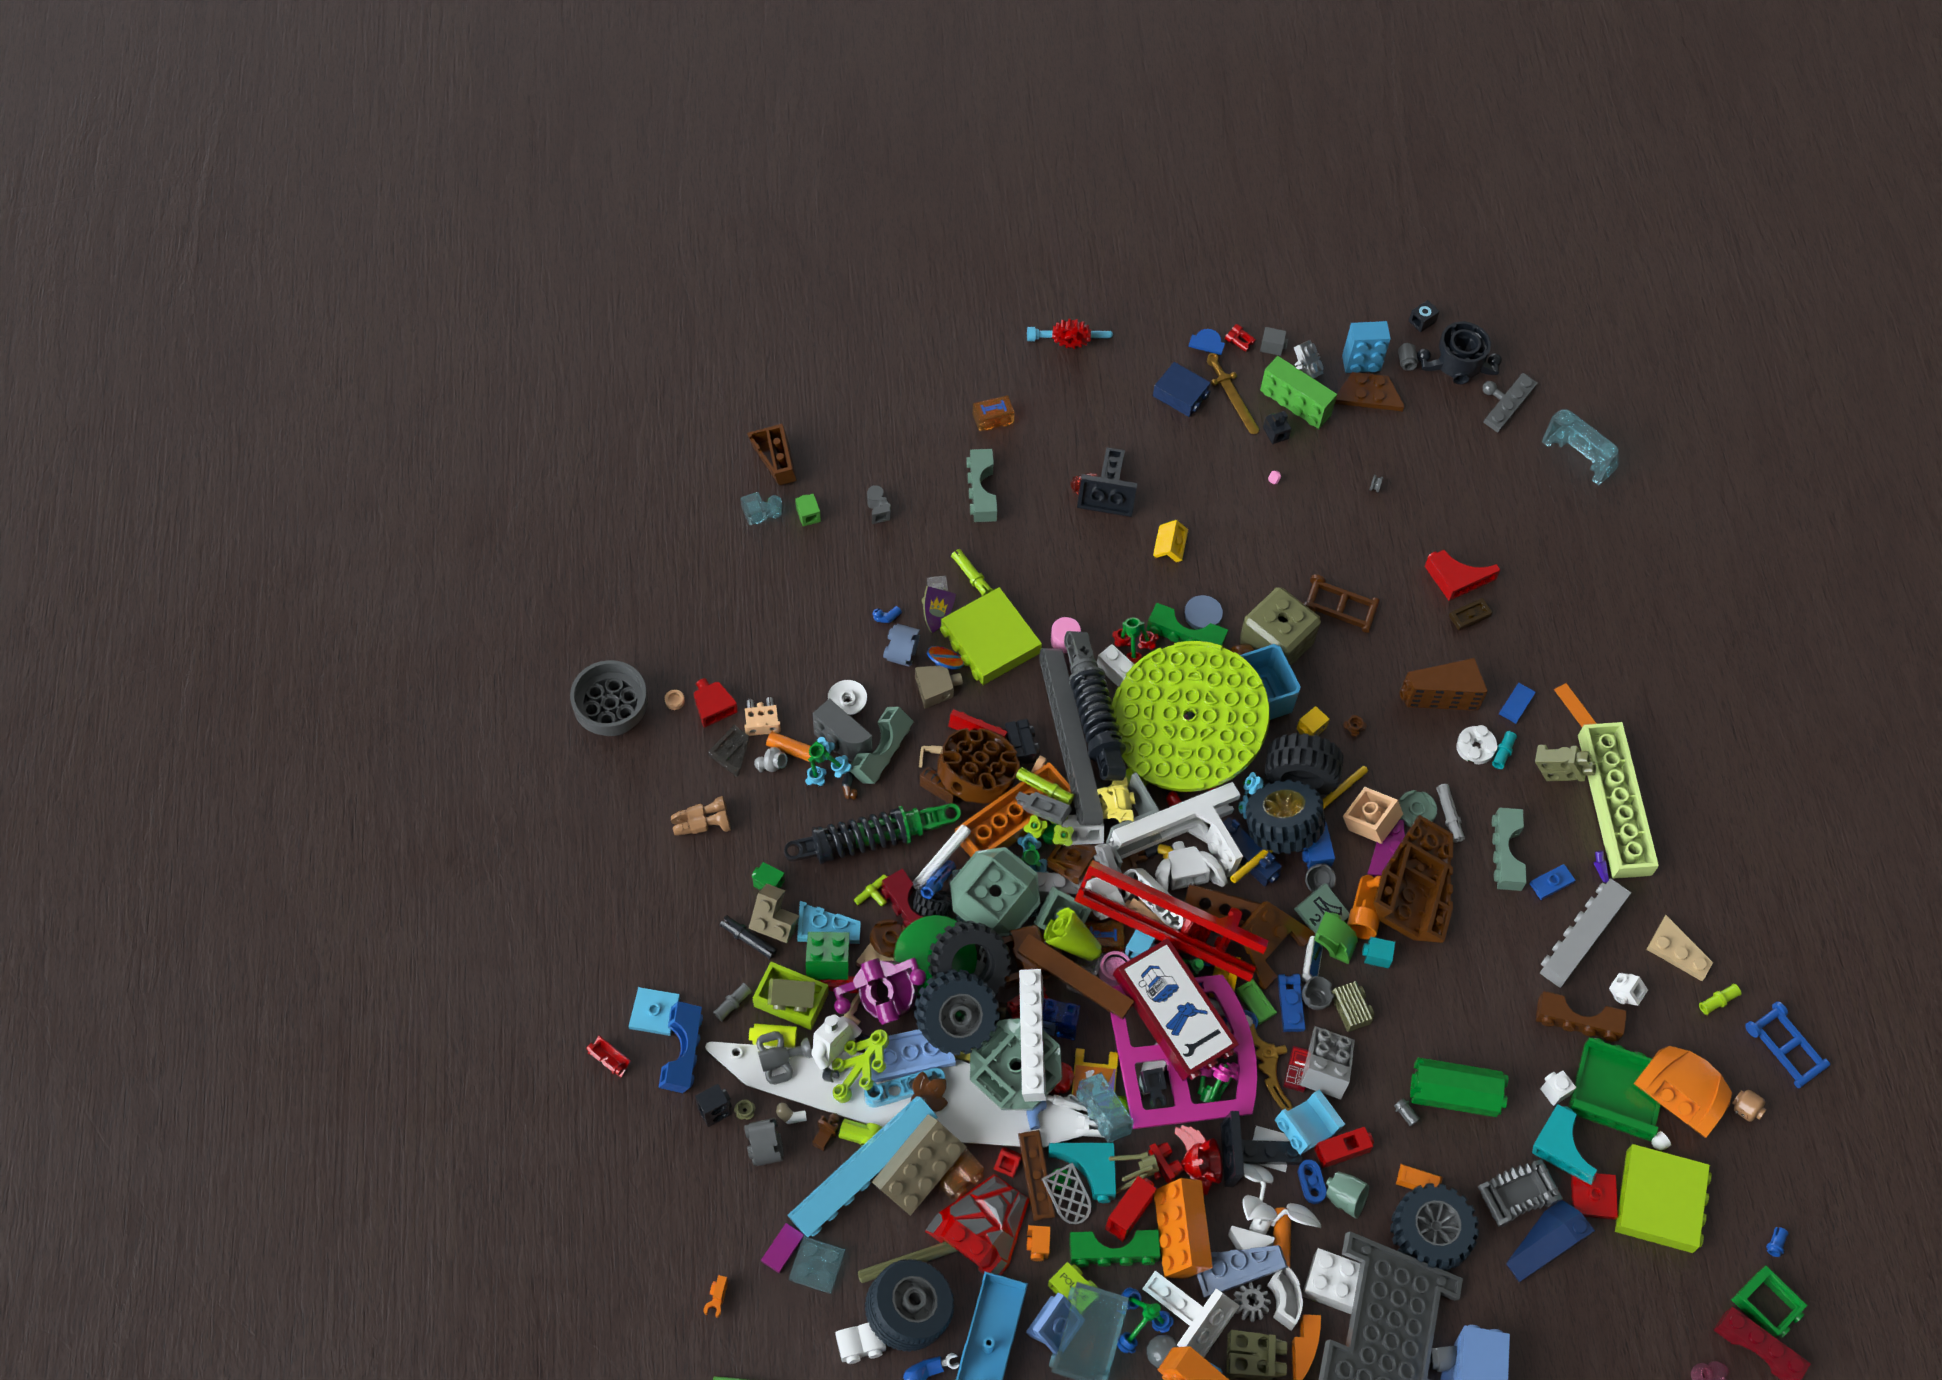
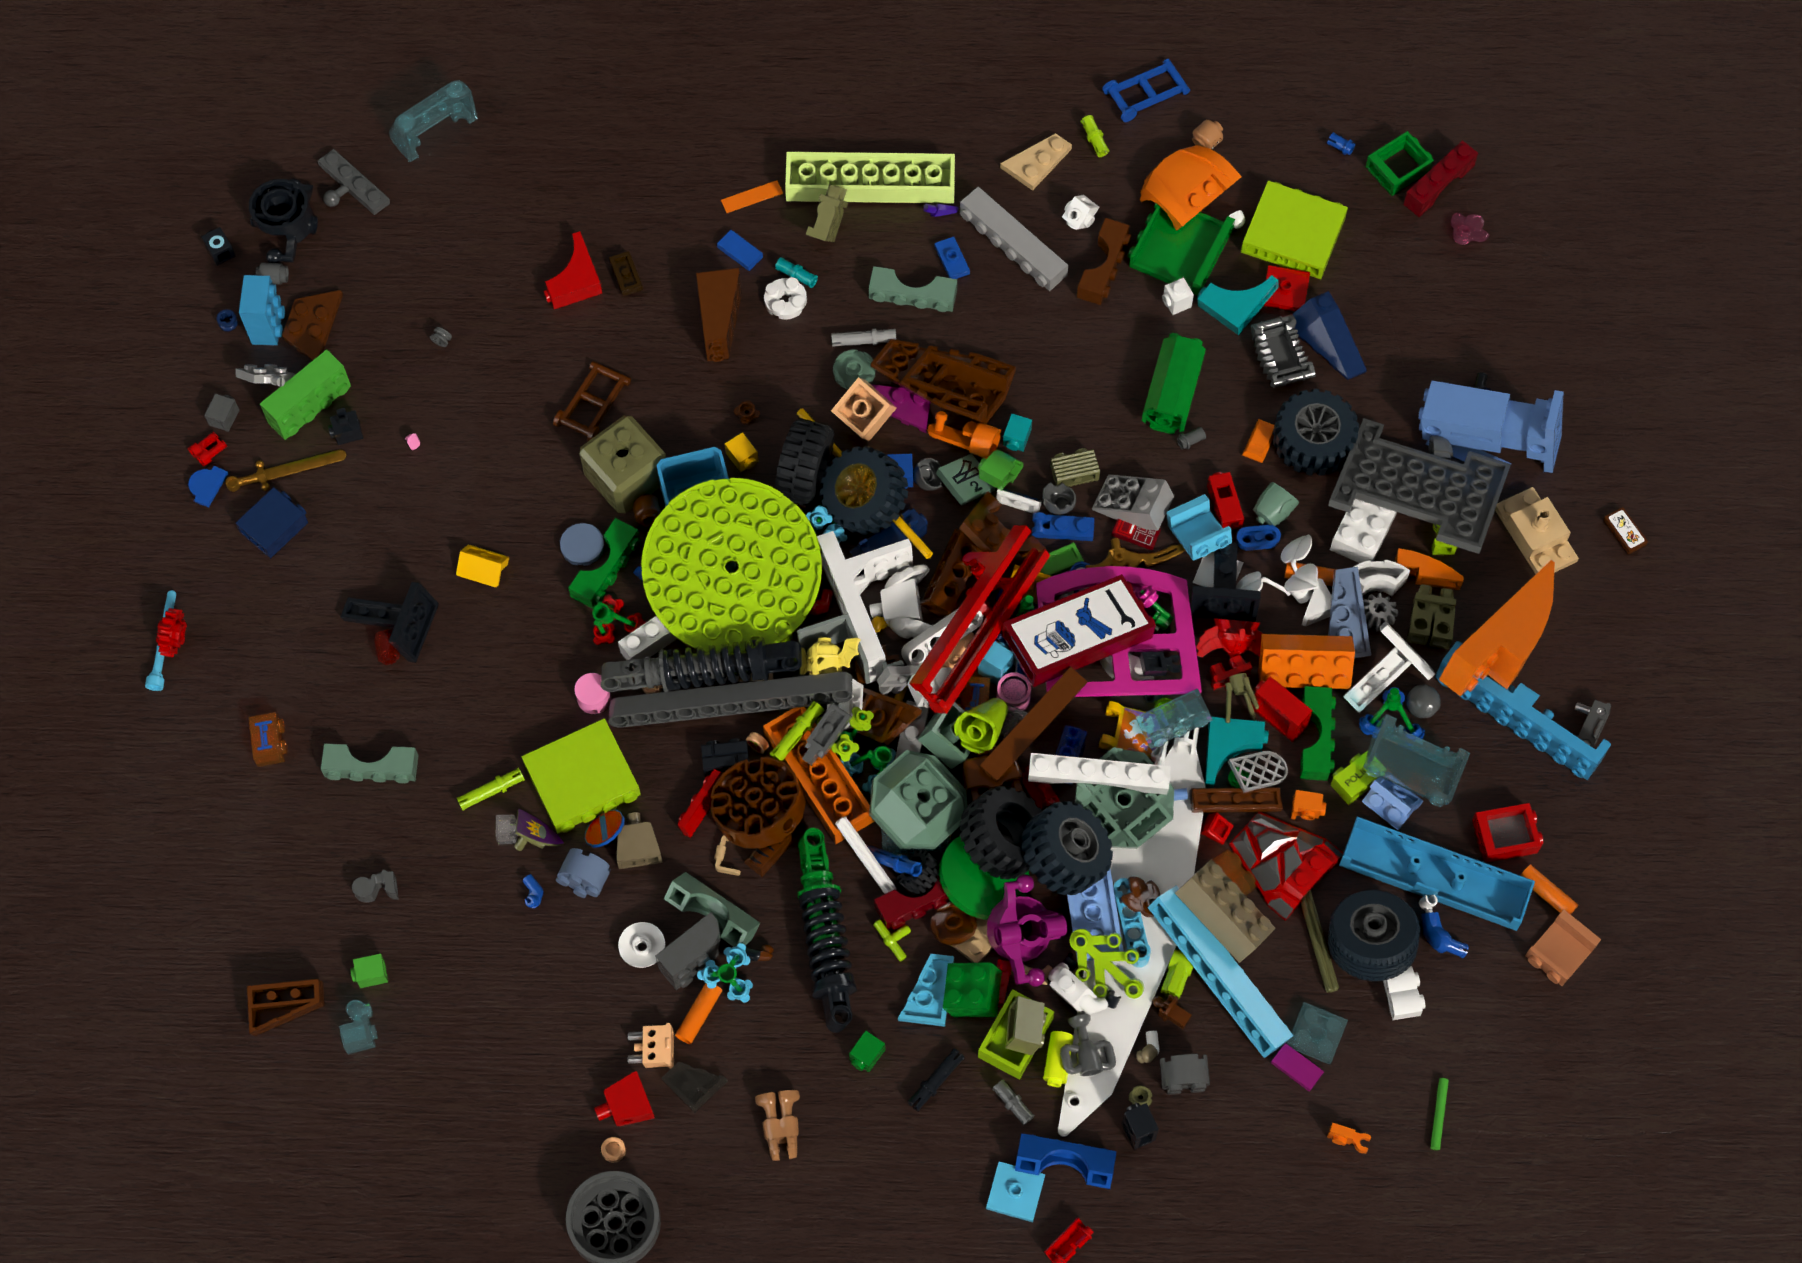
camera: 80 degrees left, 5 degrees up
(770, 918) = (918, 1048): dark tan brick -> none
(772, 760) = (715, 1036): light grey animal -> none

